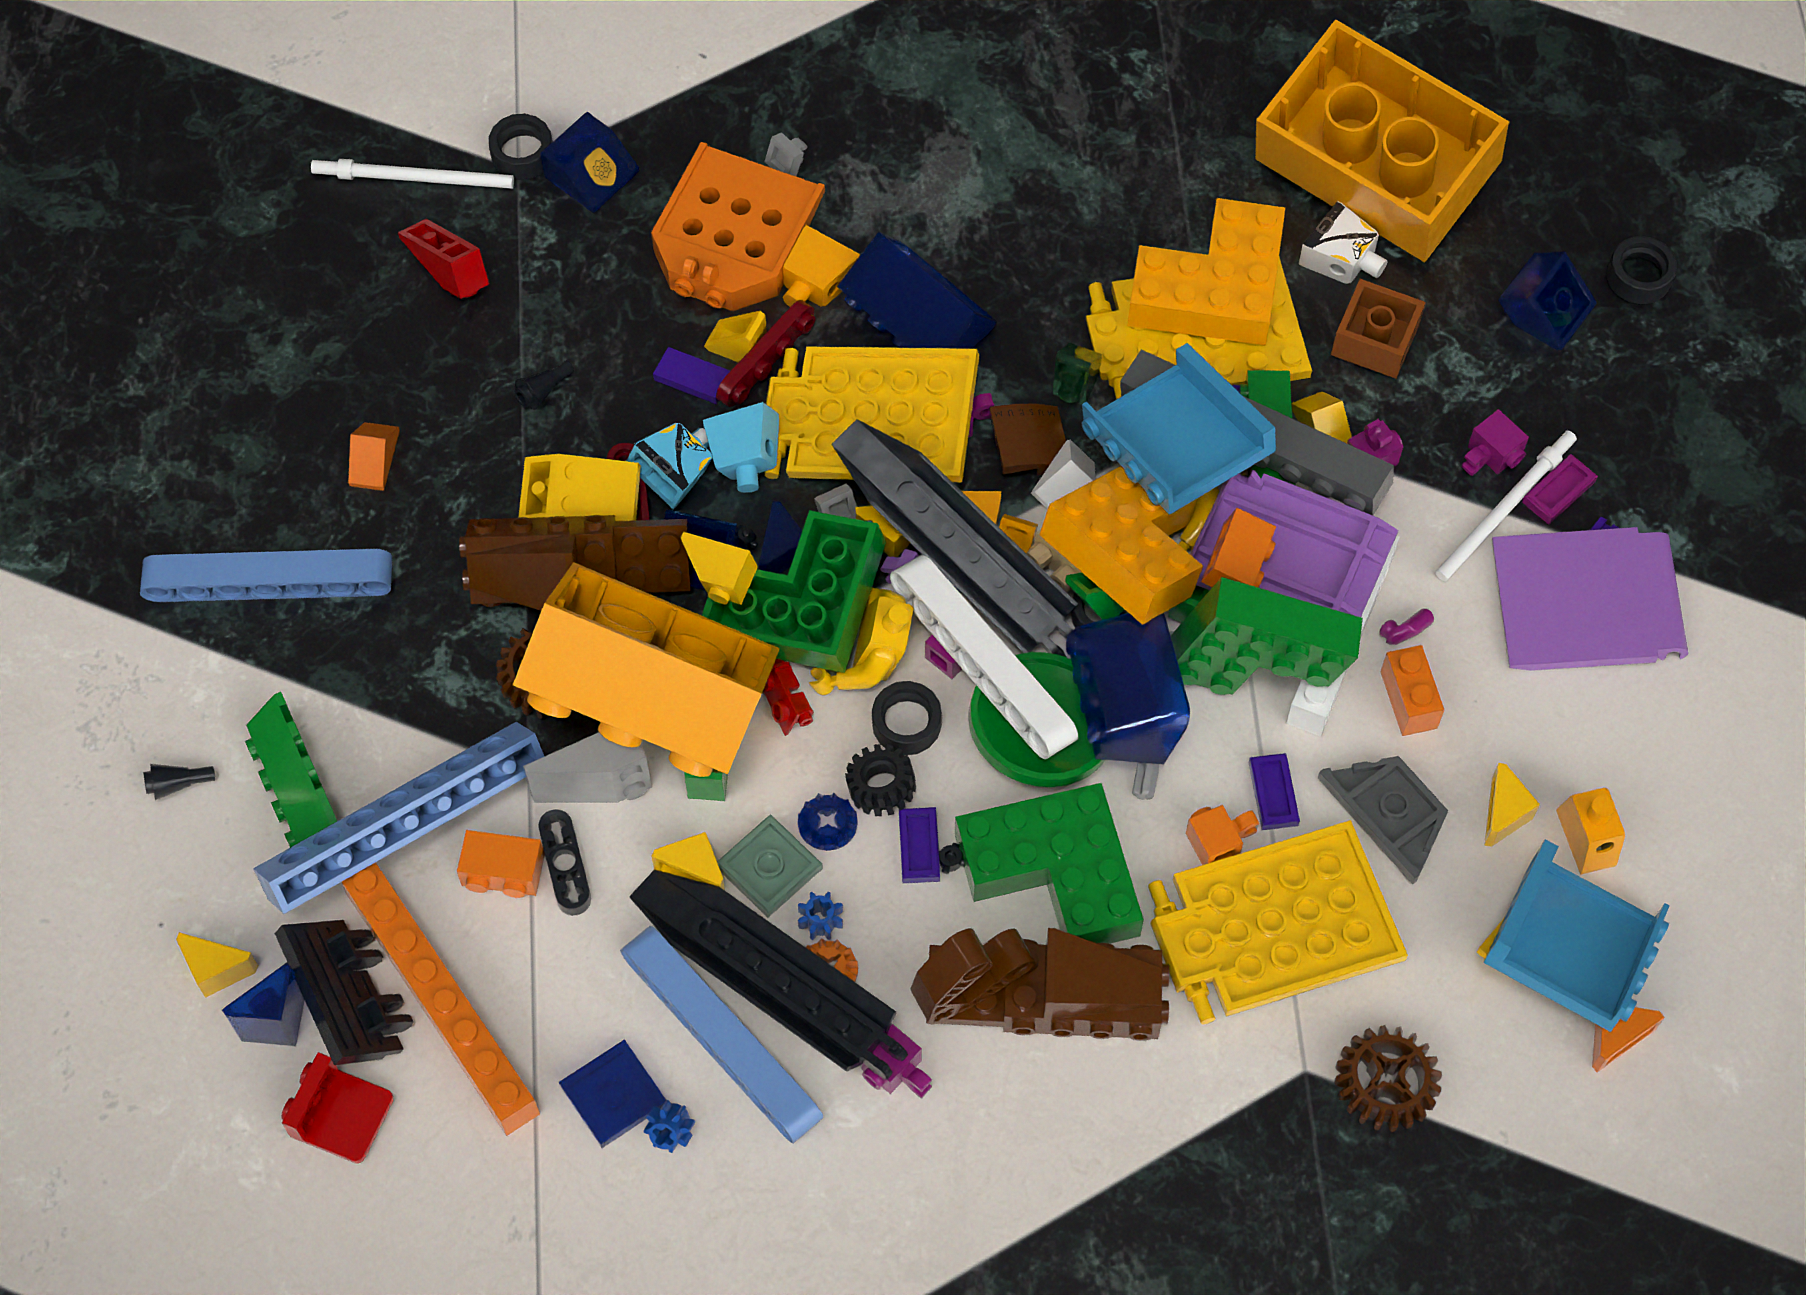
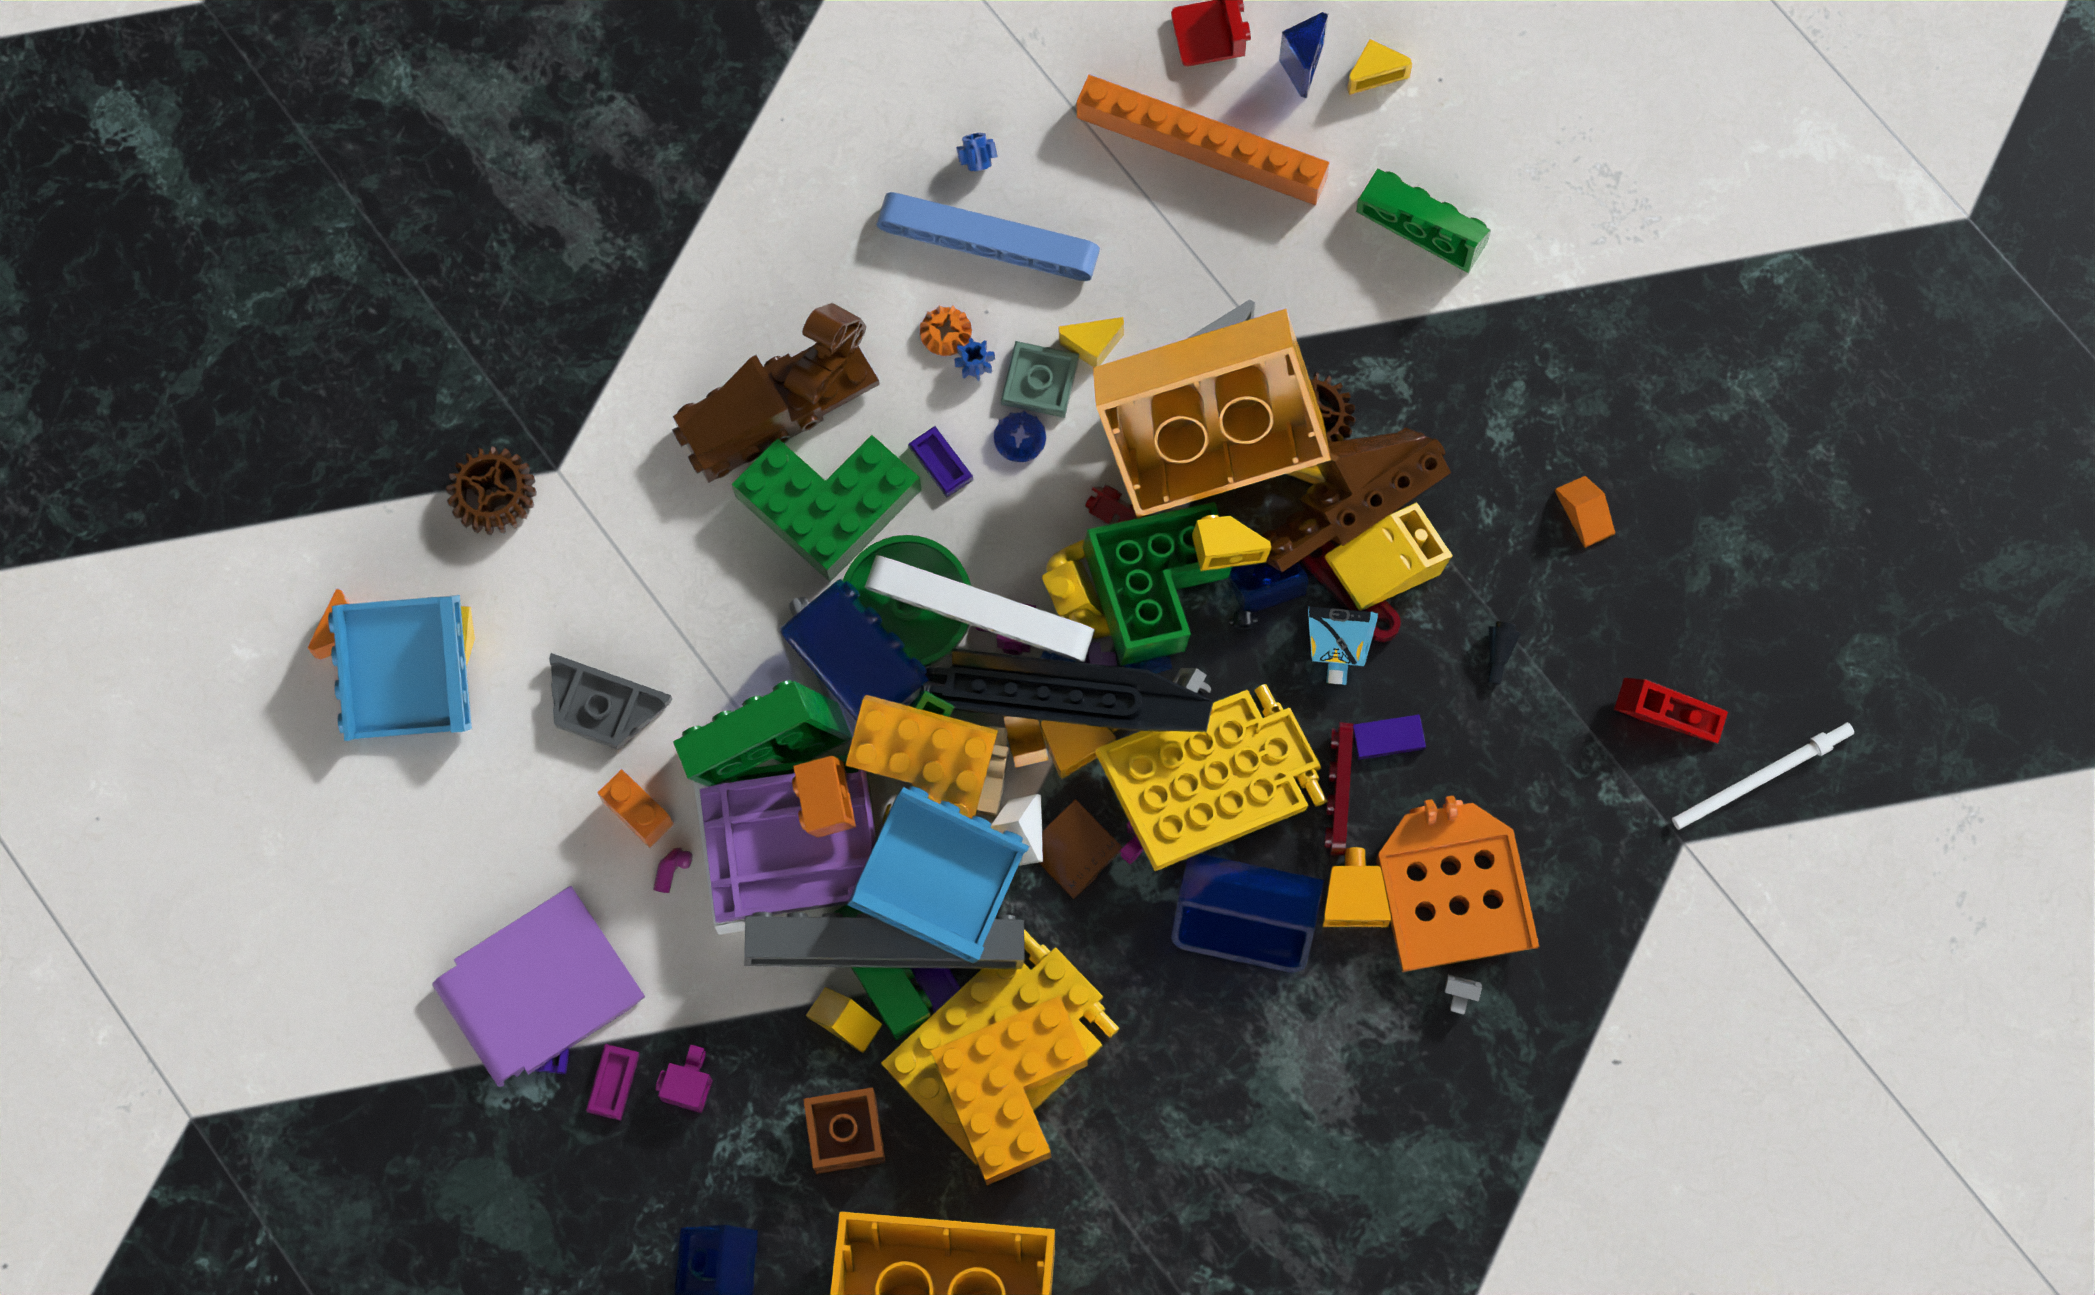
camera: 150 degrees right, 10 degrees up
(167, 779) = (1520, 168): black cone -> none
(266, 575) = (1579, 359): medium blue beam -> none
(340, 999) = (1272, 94): black hinge -> none
(398, 818) = (1327, 216): medium blue brick -> none
(500, 863) = (1231, 255): orange brick -> none
(515, 126) = (1704, 834): black tyre -> none
(552, 851) = (1190, 303): black beam -> none
(588, 162) = (1622, 875): clear blue slope -> none
(612, 1093) = (1034, 157): clear blue tile -> none
(737, 335) = (1375, 789): yellow slope -> none
(744, 443) = (1296, 687): medium azure torso -> none
(770, 970) = (979, 285): black hinge -> none
(779, 541) = (1209, 630): clear blue slope -> none
(886, 796) = (985, 497): black tyre -> none
(902, 1071) = (852, 290): magenta brick -> none
(911, 692) = (1006, 525): black tyre -> none
(950, 858) = (912, 462): black piece -> none
(1075, 373) = (1073, 926): clear green slope -> none
(1216, 835) = (719, 596): orange brick -> none
(1274, 791) = (699, 667): dark purple tile -> none
(1275, 922) = (638, 561): yellow plate -> none
(1342, 247) = (922, 1197): white torso -> none
(1379, 442) = (784, 1013): magenta brick -> none
(1509, 805) = (509, 757): yellow slope -> none
(1546, 461) = (635, 1102): white bar -> none
(1592, 822) = (436, 774): light orange torso -> none

